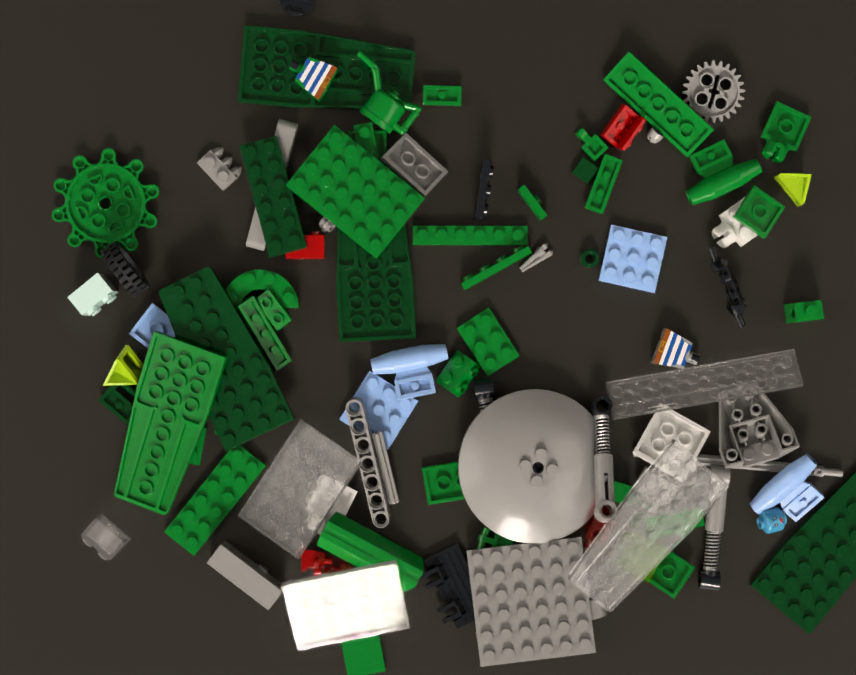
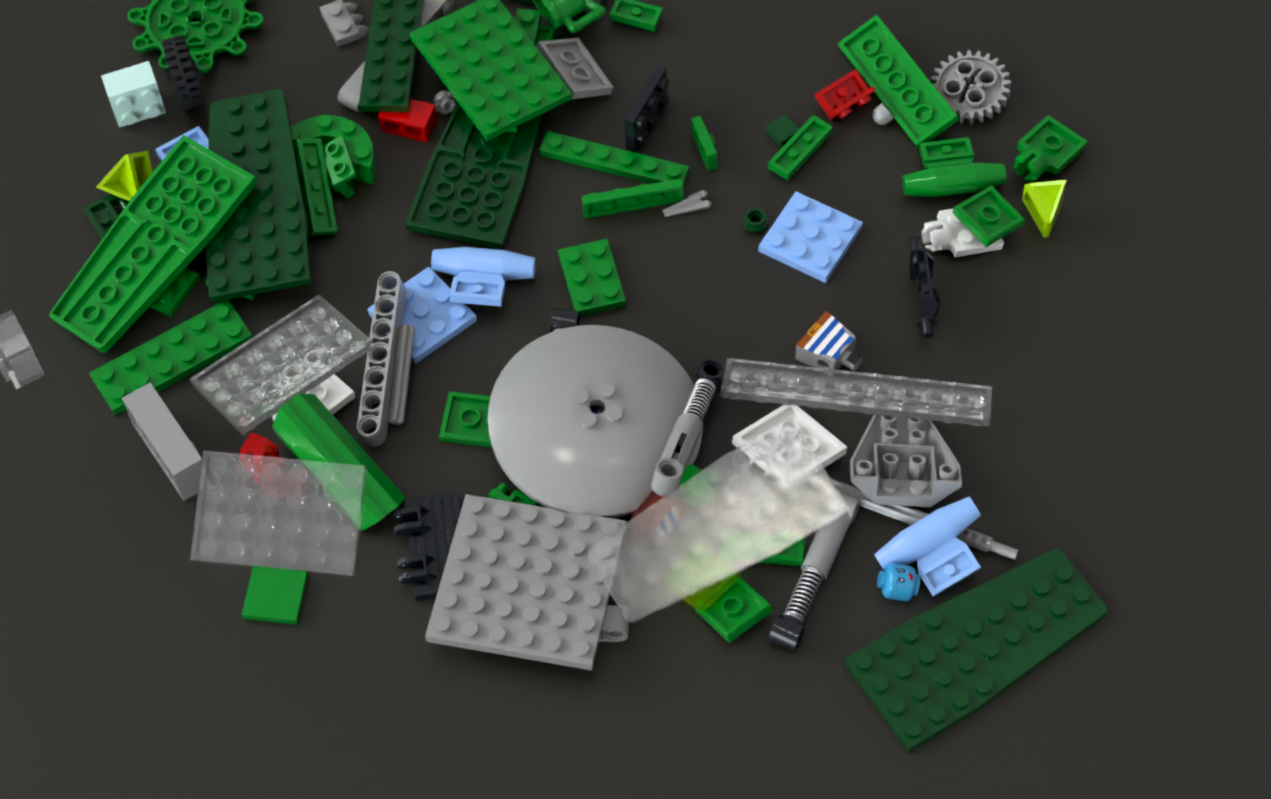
camera: 20 degrees right, 30 degrees down
(458, 373) = (539, 299): green bracket -> none
(593, 145) = (800, 105): green plate -> none
(803, 311) = (1019, 343): green torso -> none

